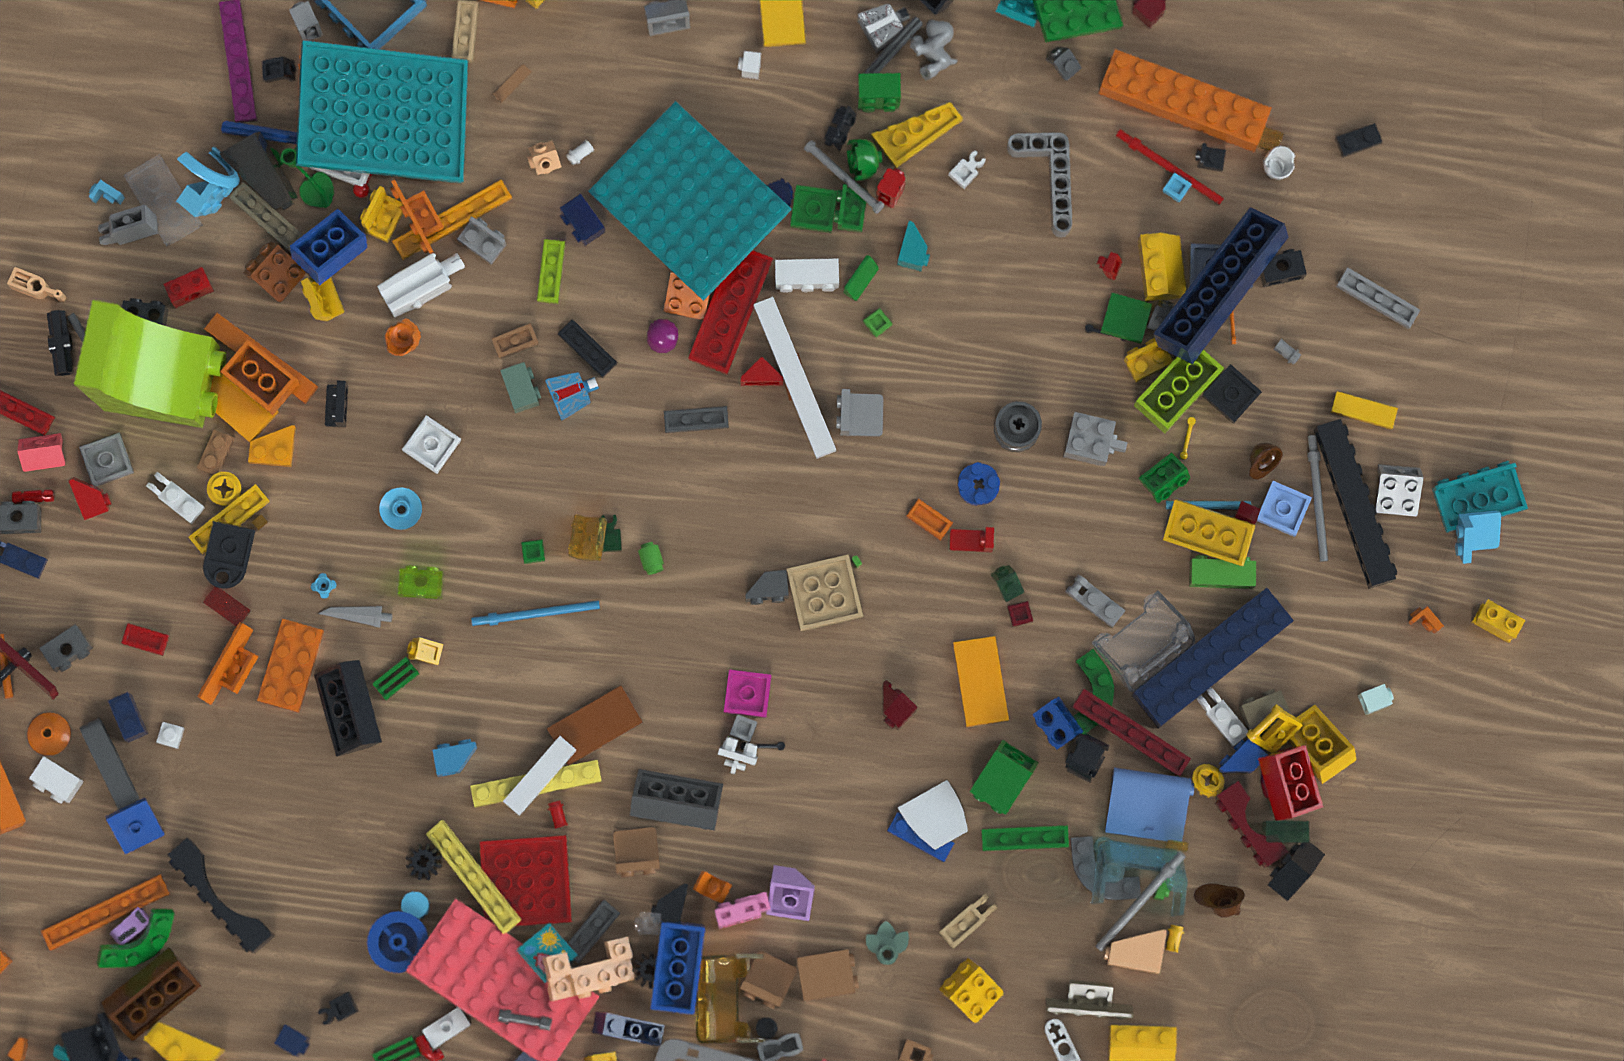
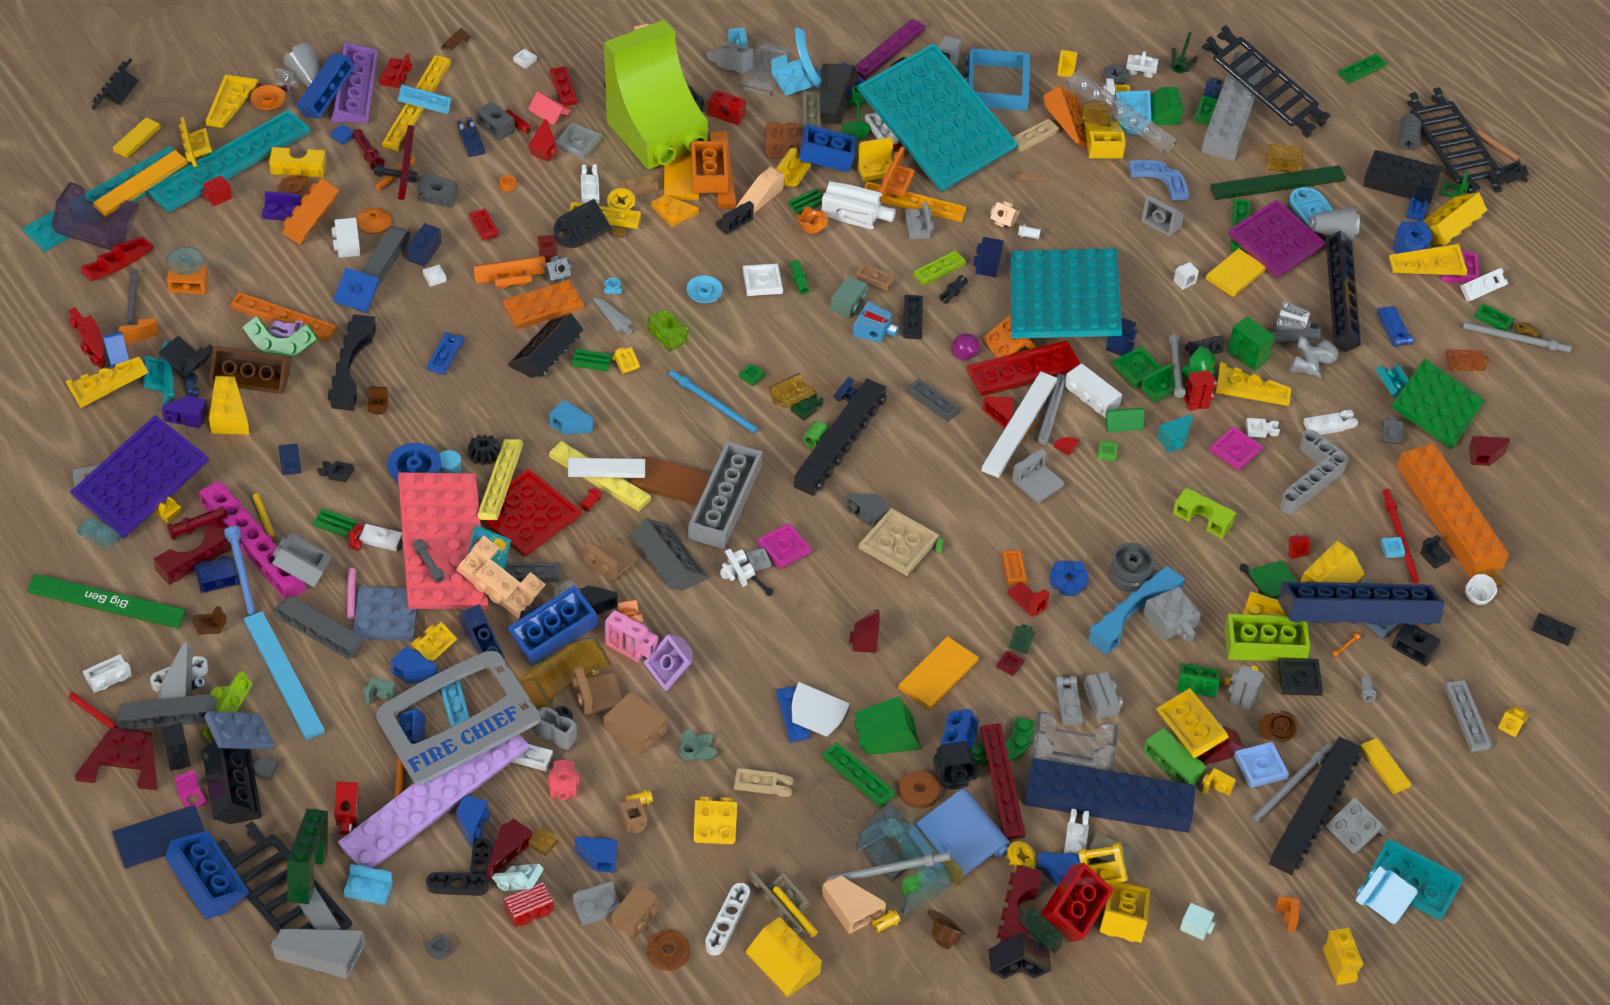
camera: 50 degrees right, 30 degrees down
(107, 571) = (508, 183): none -> orange tile
(264, 622) = (551, 269): none -> brick
(278, 803) = (445, 353): none -> blue plate
(288, 910) = (377, 400): none -> reddish brown bracket
(324, 351) = (764, 188): none -> light nougat slope
(371, 299) = (806, 200): none -> green tile
(457, 408) = (799, 277): none -> green pin
(588, 284) = (953, 289): none -> black pin
(624, 488) = (846, 390): none -> dark blue tile
(655, 698) = (725, 495): none -> light grey brick
(672, 539) = (840, 437): none -> black brick
(795, 328) = (1051, 410): none -> light grey axle
(842, 351) = (1067, 444): none -> red tile
(900, 1034) = (645, 797): none -> yellow pin
(970, 213) = (1236, 448): none -> dark pink plate
(1009, 106) = (1331, 422): none -> white hinge
(1029, 301) = (1193, 504): none -> lime arch
(1062, 505) = (1108, 632): none -> dark azure arch
(1089, 797) = (919, 779): none -> dark orange tile
(1109, 1004) = (794, 911): none -> yellow bar
(1117, 571) = (1102, 695): none -> light grey brick
(1212, 454) = (1245, 687): none -> light grey brick
(1275, 558) = (1218, 780): none -> yellow bracket
(1412, 265) = (1513, 720): none -> yellow bracket

